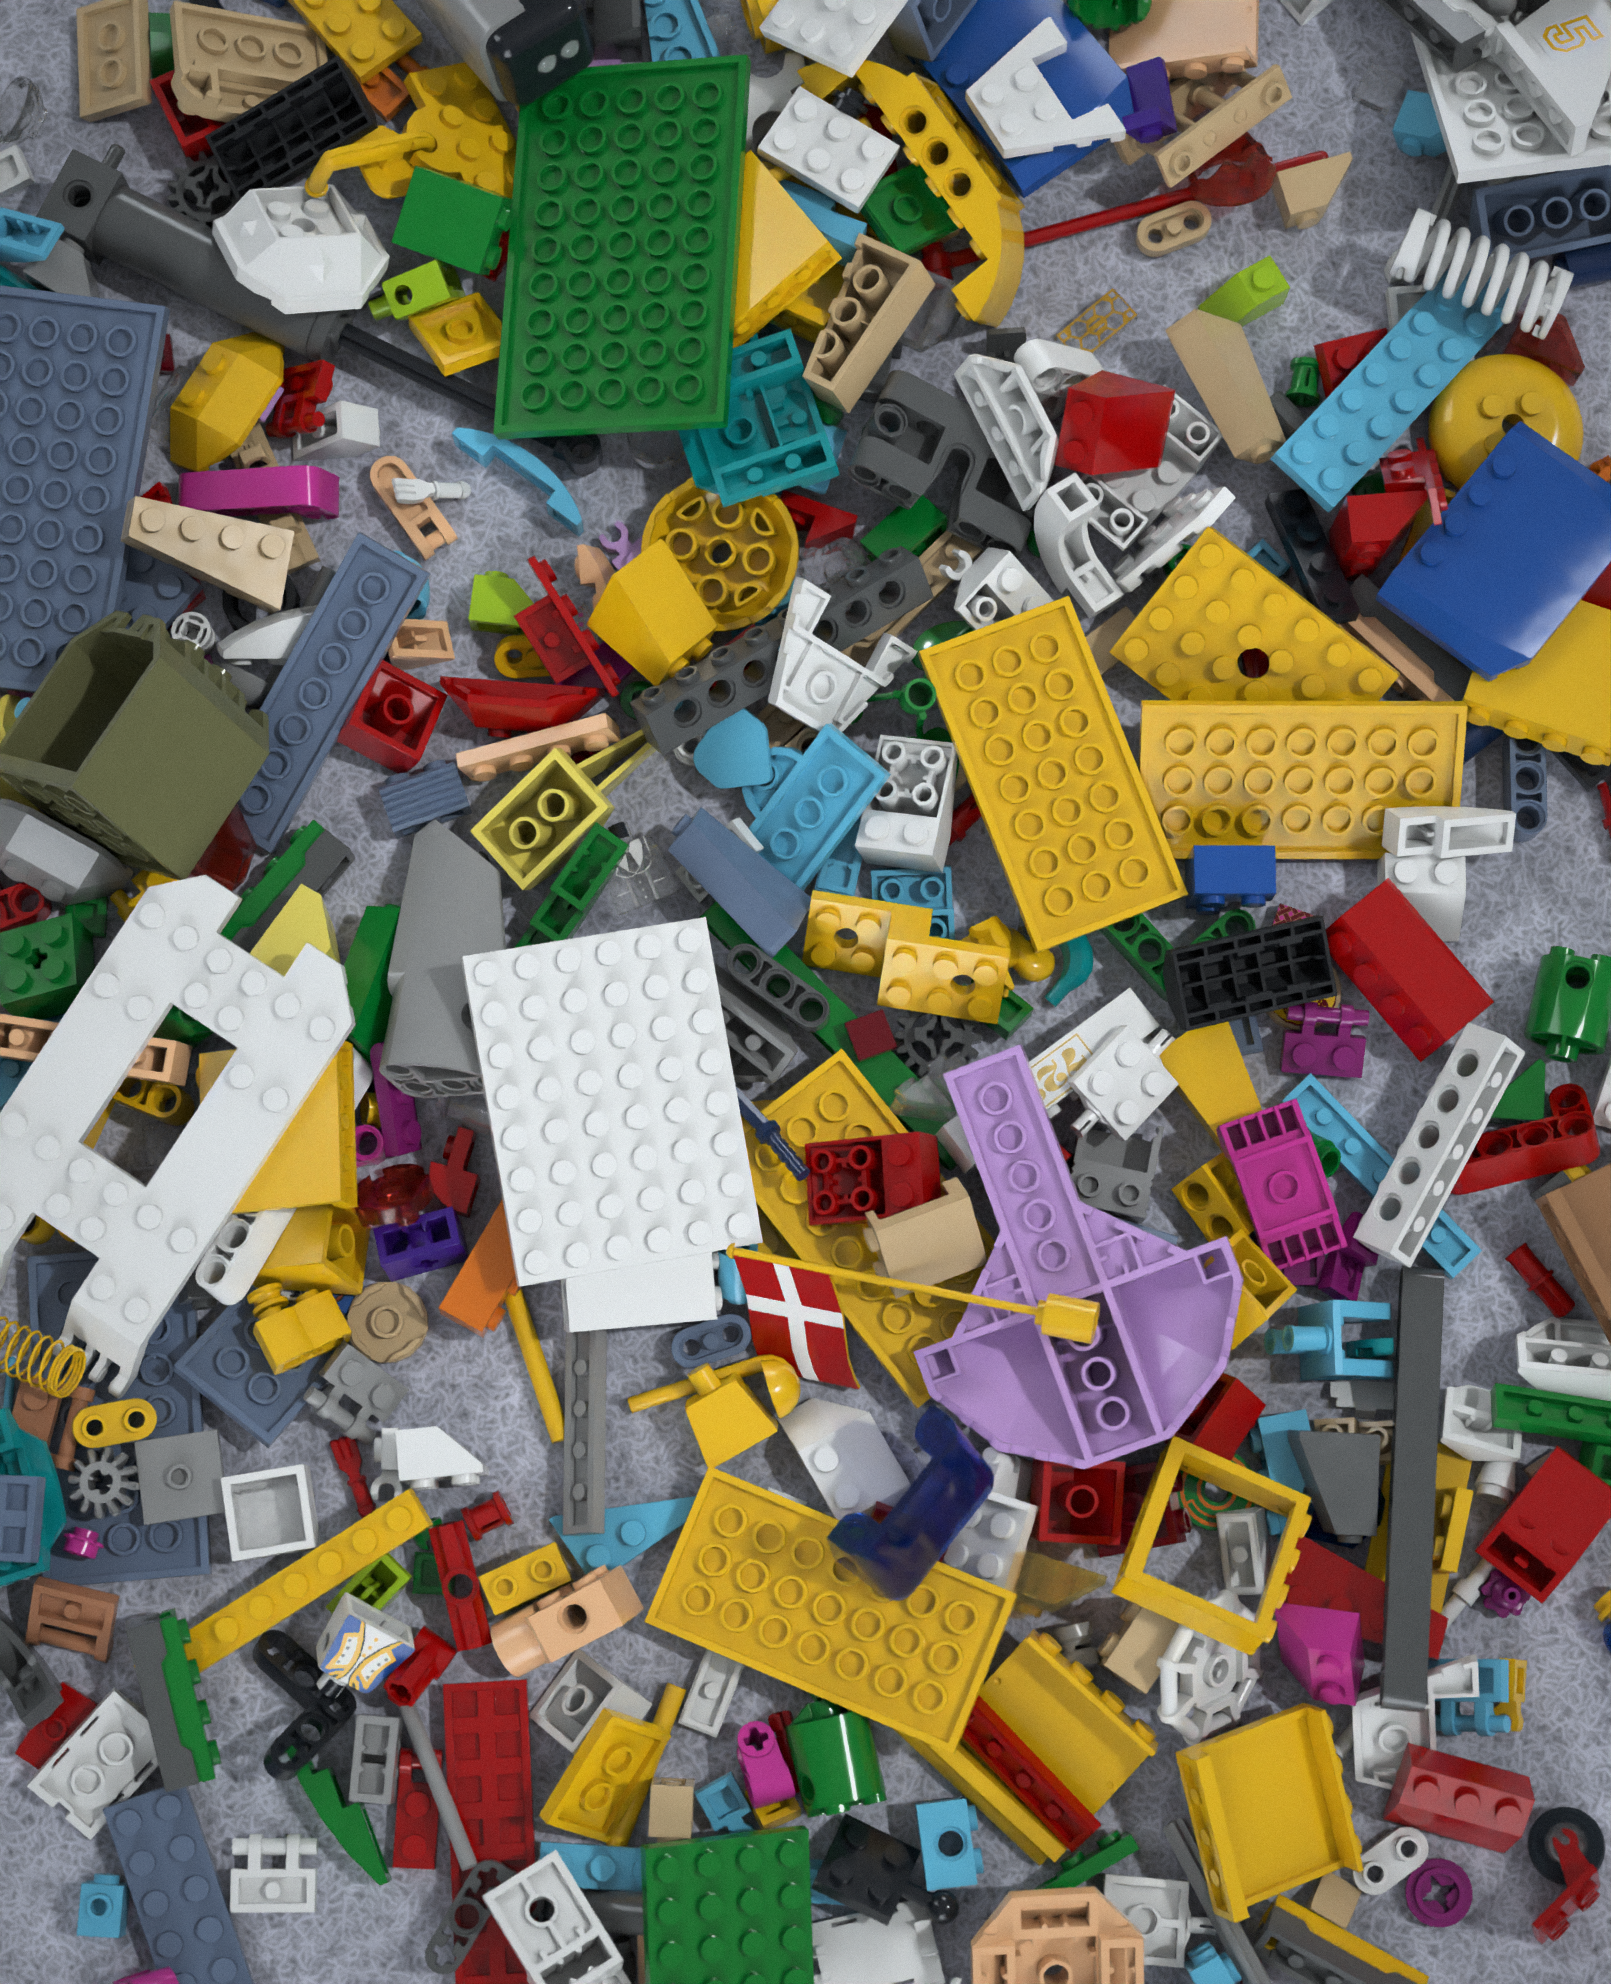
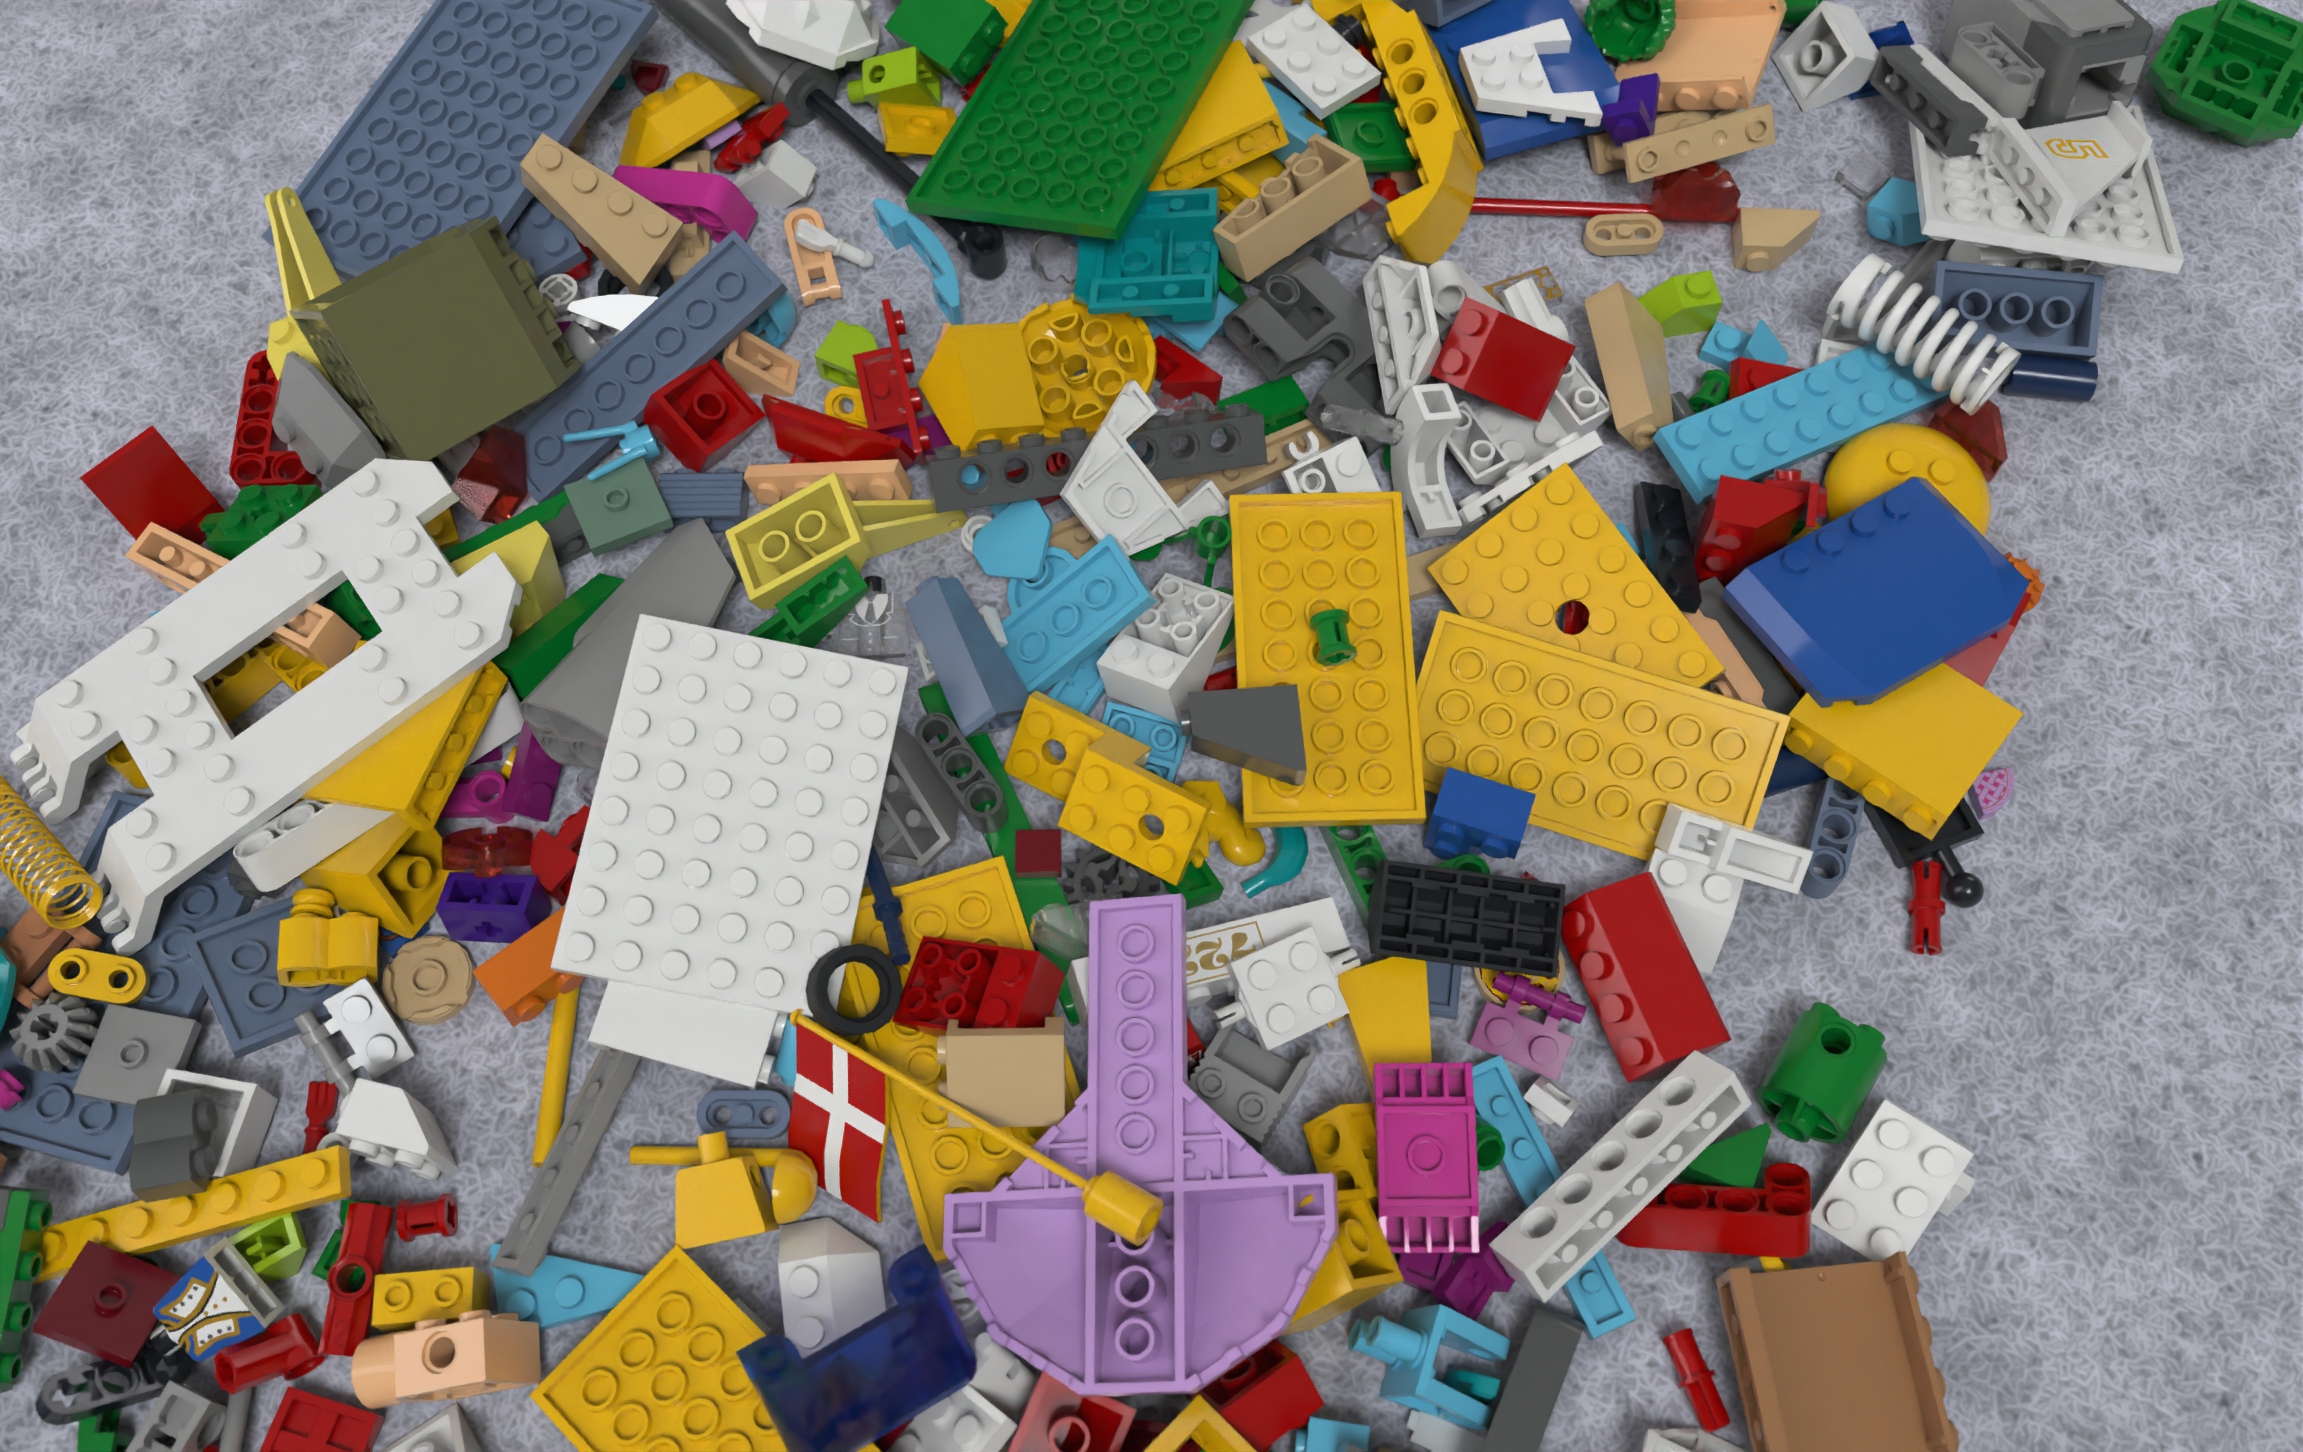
camera: 25 degrees right, 15 degrees down
(269, 1537) = (172, 1145): none -> dark grey brick
(275, 1676) = (106, 1304): none -> dark red plate
(348, 772) = (637, 443): none -> medium azure plant
(359, 837) = (618, 507): none -> sand green plate
(801, 1211) = (889, 985): none -> black tyre
(1010, 535) = (1361, 424): none -> clear axle
(1018, 871) = (1249, 729): none -> dark grey slope
(1059, 761) = (1333, 637): none -> green bush
(1118, 352) = (1527, 305): none -> white piece
(1319, 321) = (1728, 343): none -> medium azure slope
(1362, 1098) = (1550, 1102): none -> white plate

